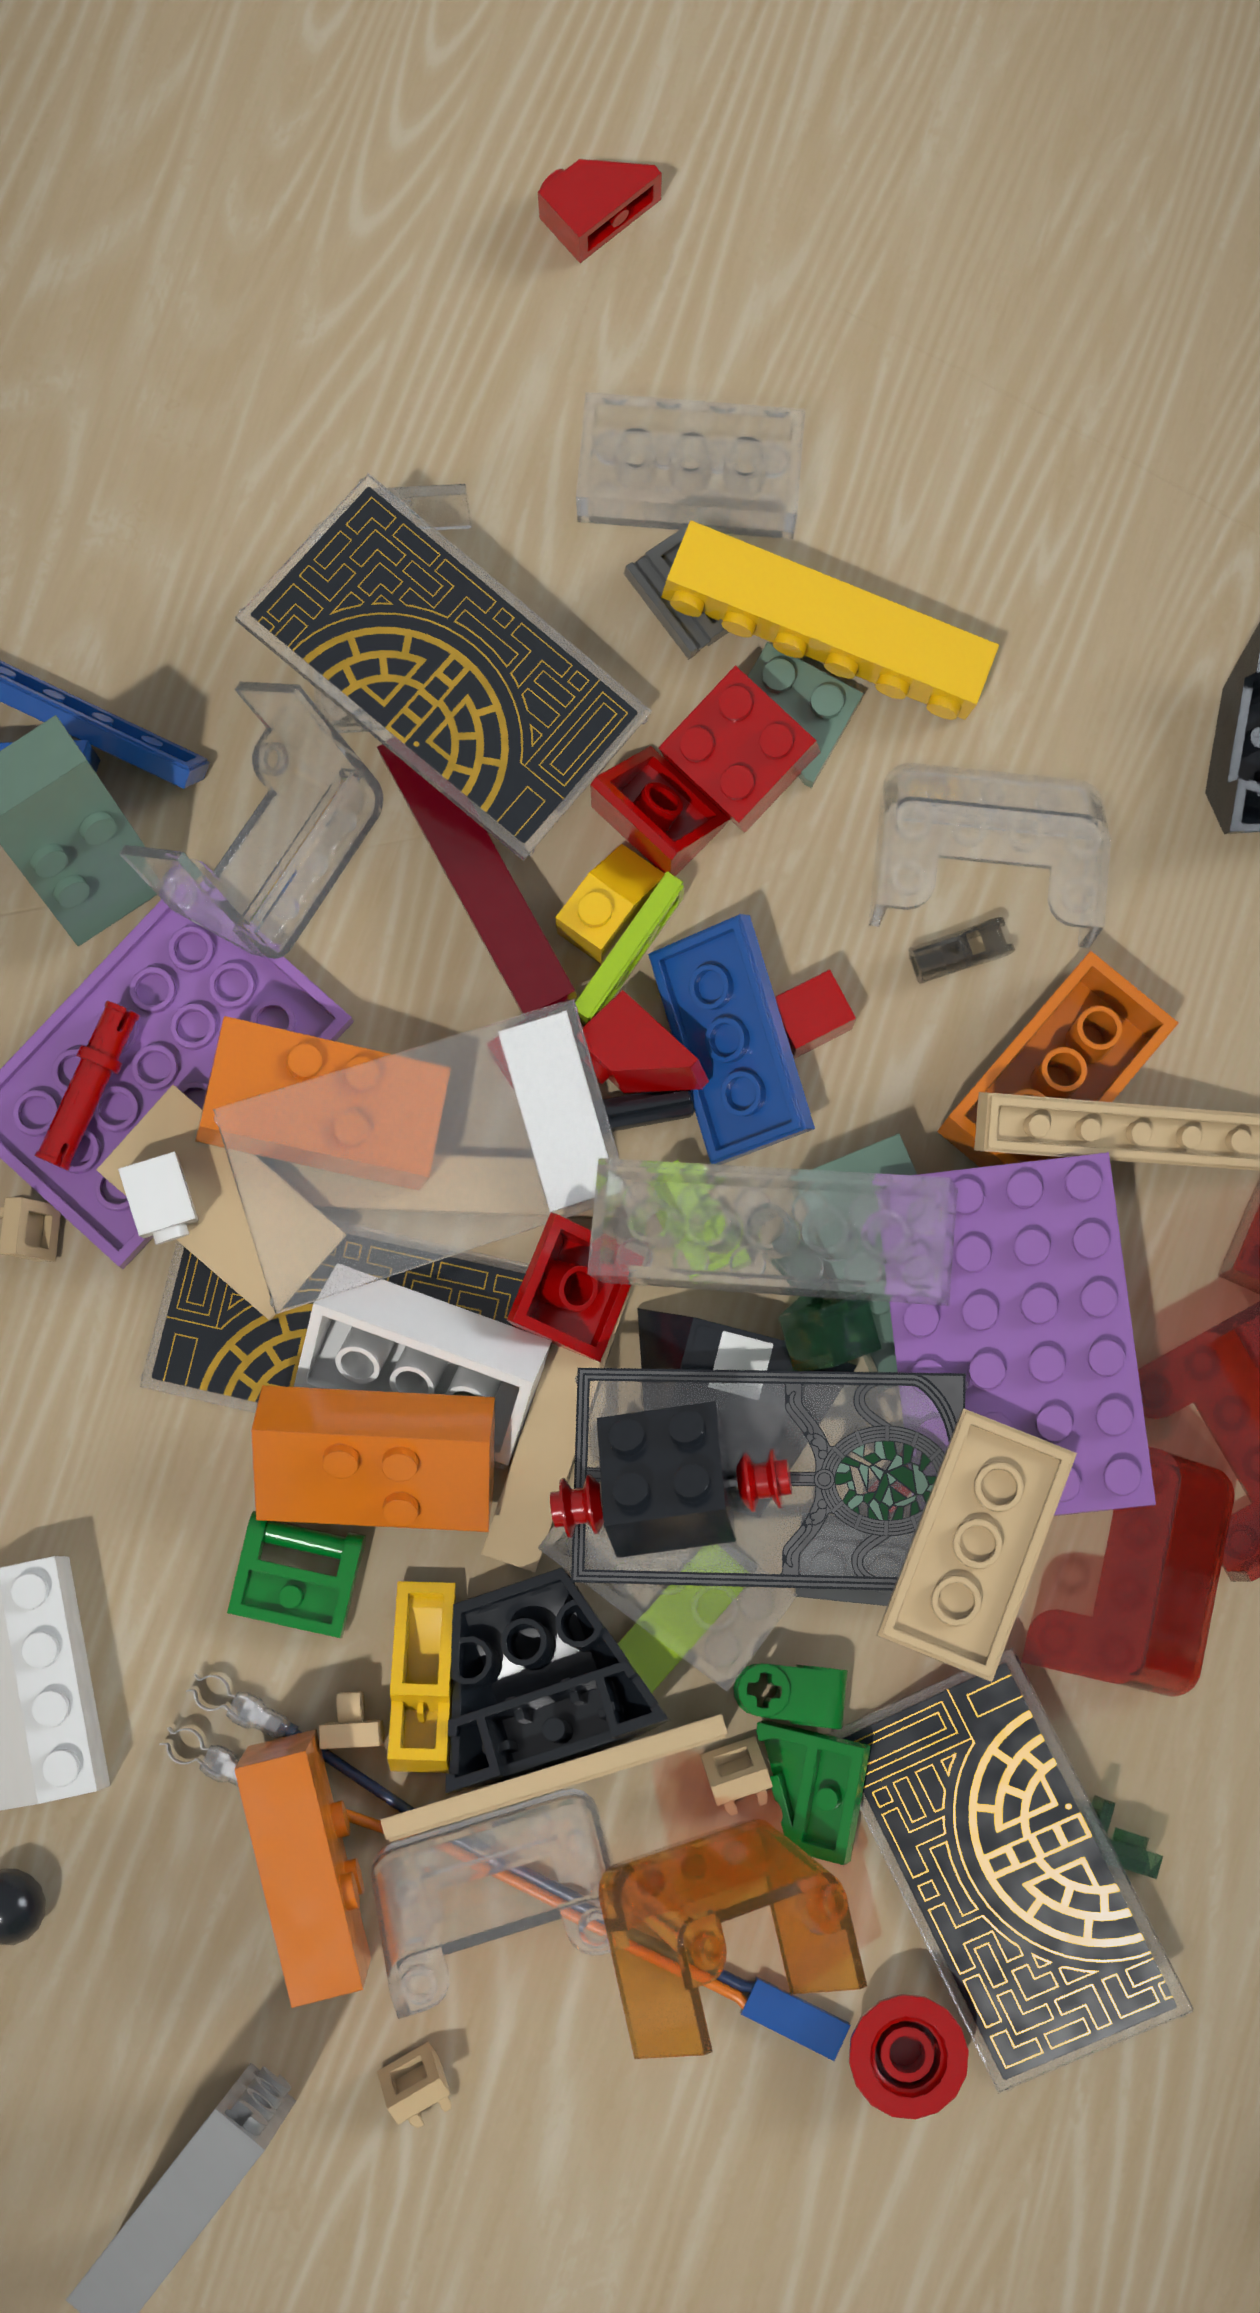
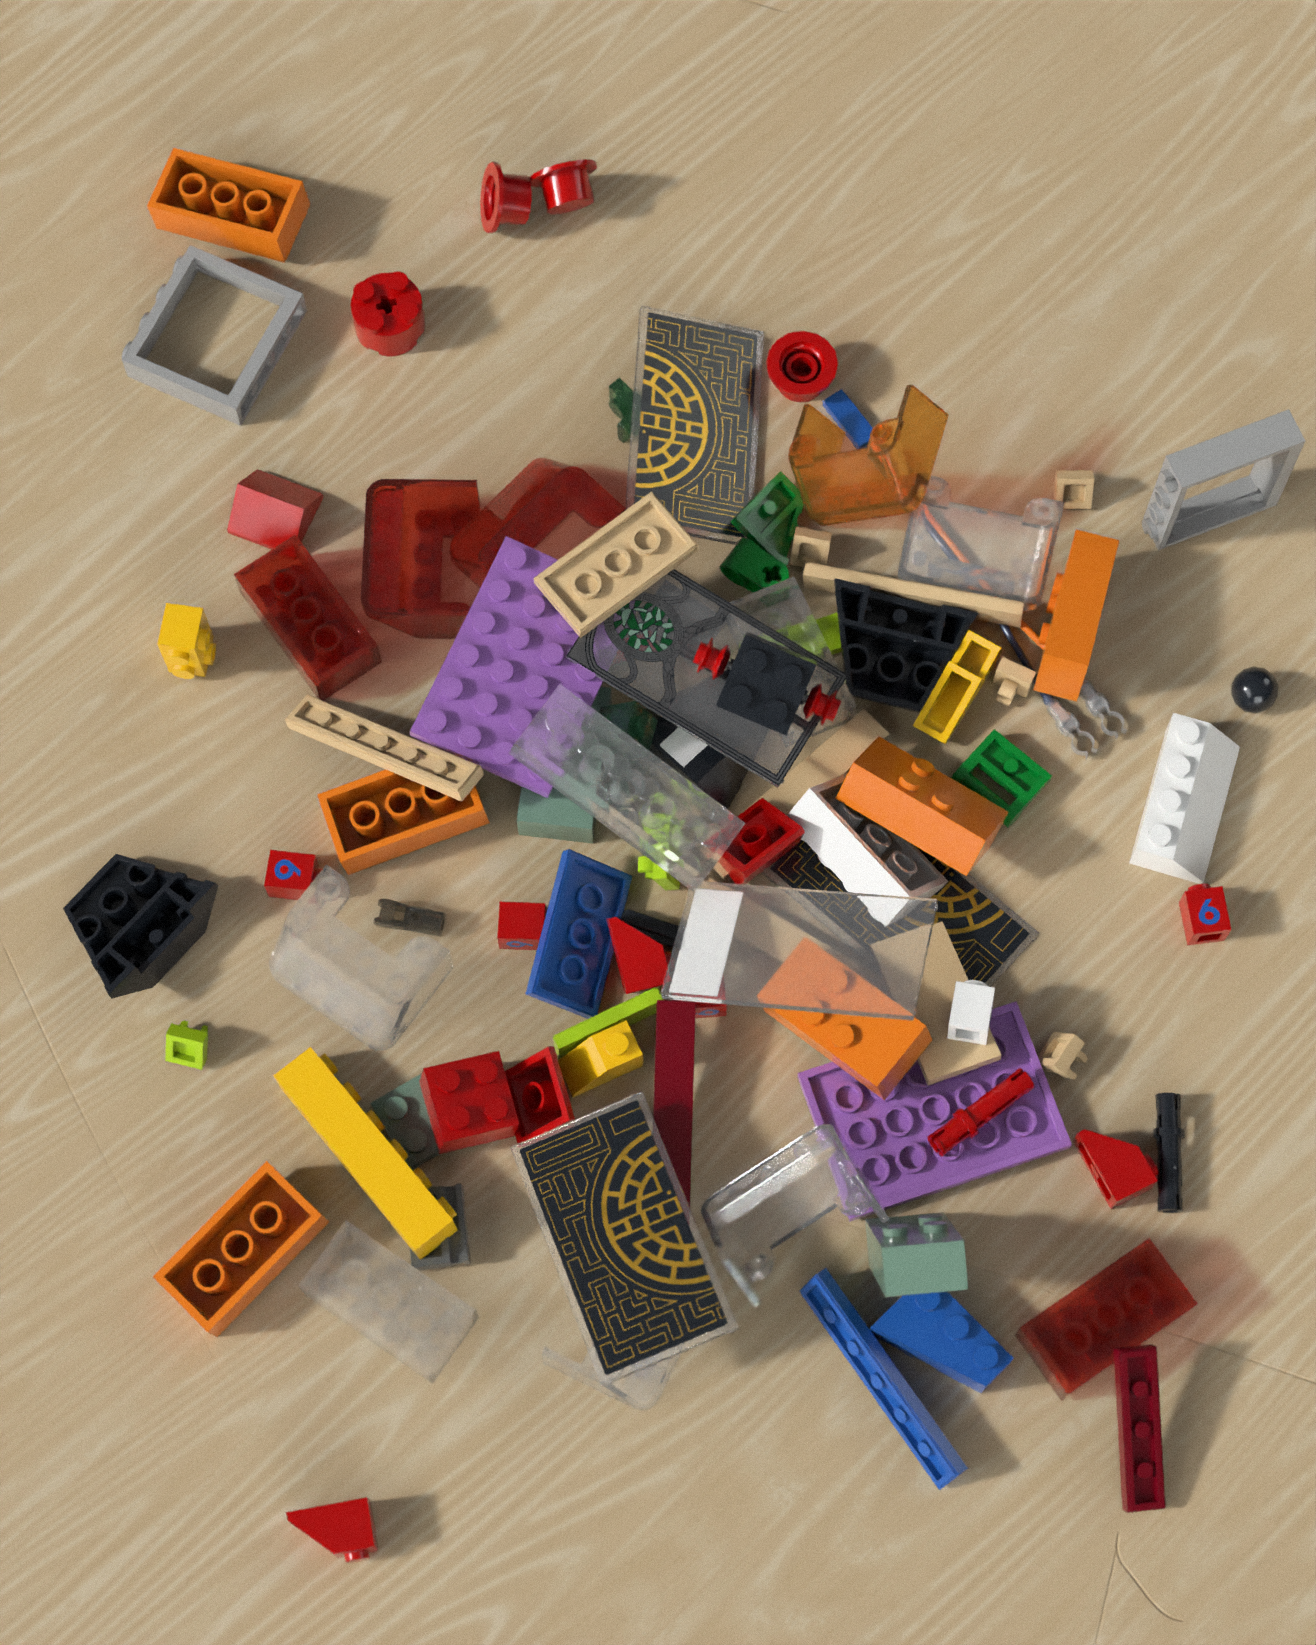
camera: 150 degrees left, 10 degrees down
(903, 431) = (241, 1249): none -> orange brick
(1129, 635) = (187, 1045): none -> lime tile
(1143, 916) = (290, 874): none -> red brick

